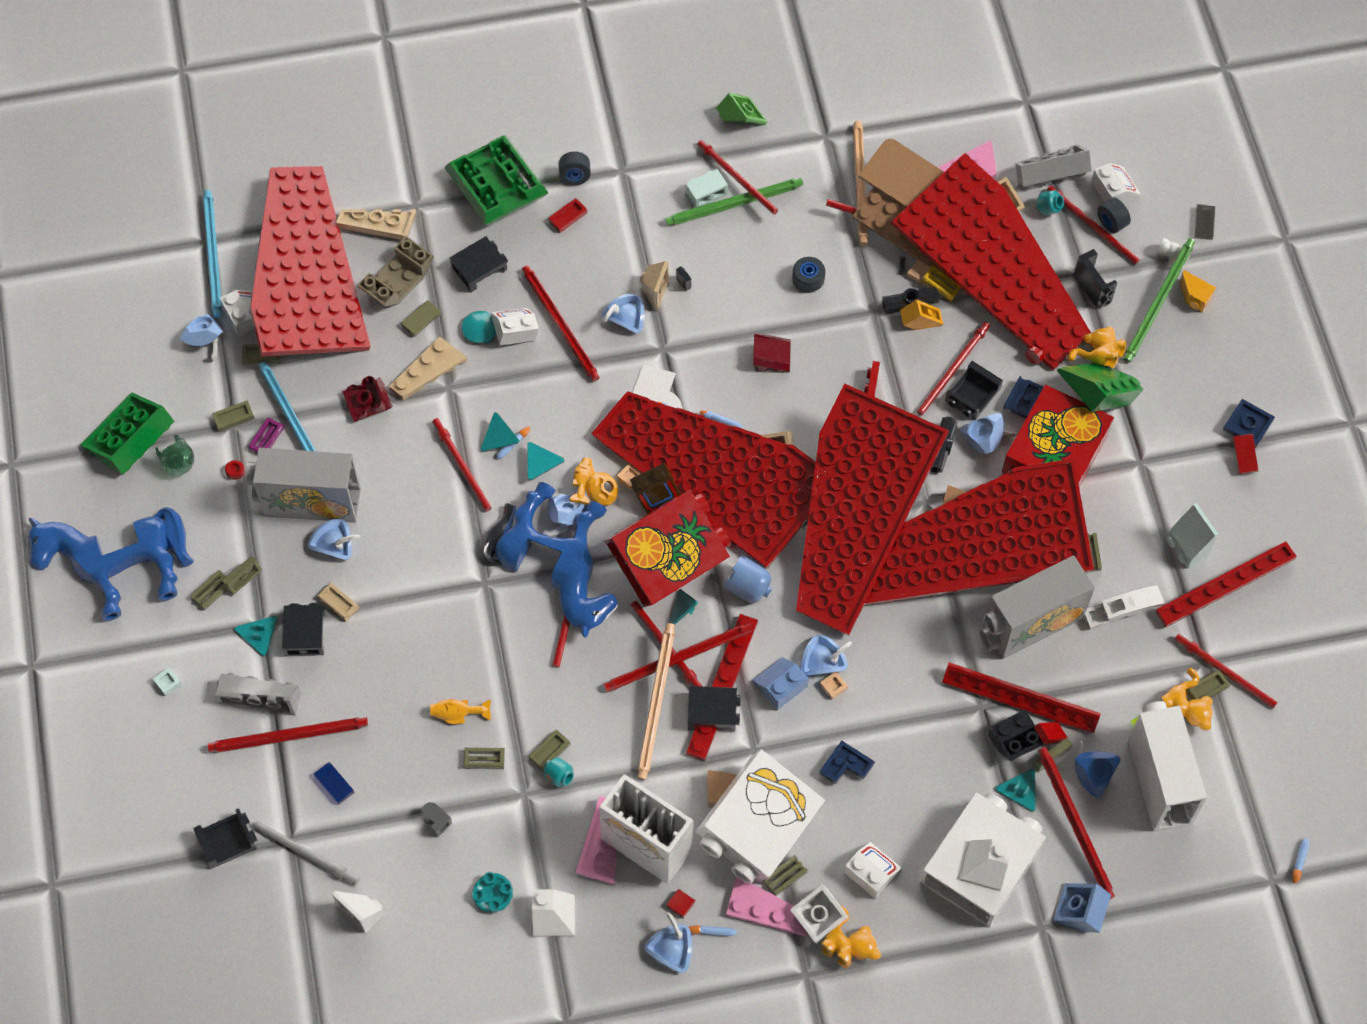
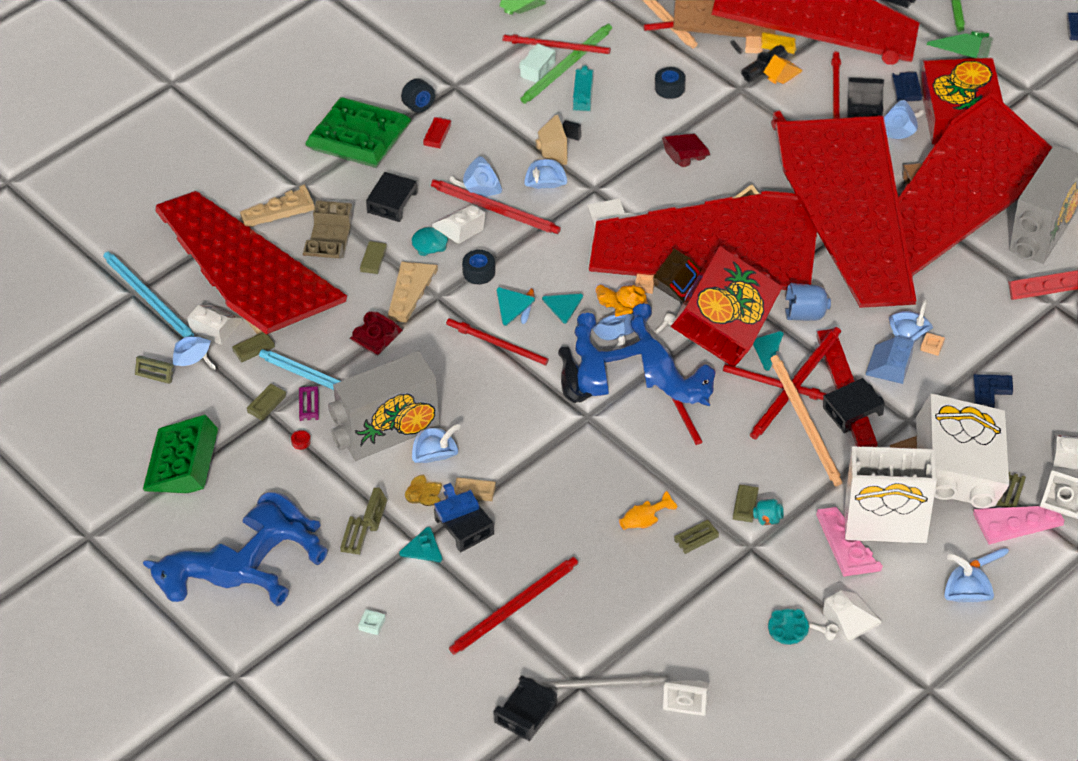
camera: 30 degrees left, 15 degrees down
(164, 332) = (167, 369): none -> olive tile
(176, 458) = (244, 452): clear green hair -> none
(258, 694) = (464, 587): light grey wedge -> none
(297, 581) = (425, 492): none -> clear yellow plate
(301, 613) = (455, 505): none -> blue plate
(334, 783) = (584, 620): clear blue tile -> none
(437, 817) = (694, 597): dark grey leg -> none
(499, 379) = (478, 267): none -> black wheel
(521, 914) = (827, 631): none -> white hand
(564, 287) = (479, 179): none -> light blue hat
(621, 525) = (669, 318): none -> white hand
(681, 903) = (943, 550): red tile -> none
(725, 239) = (583, 89): none -> teal brick
(1105, 348) = (937, 26): light orange animal -> none

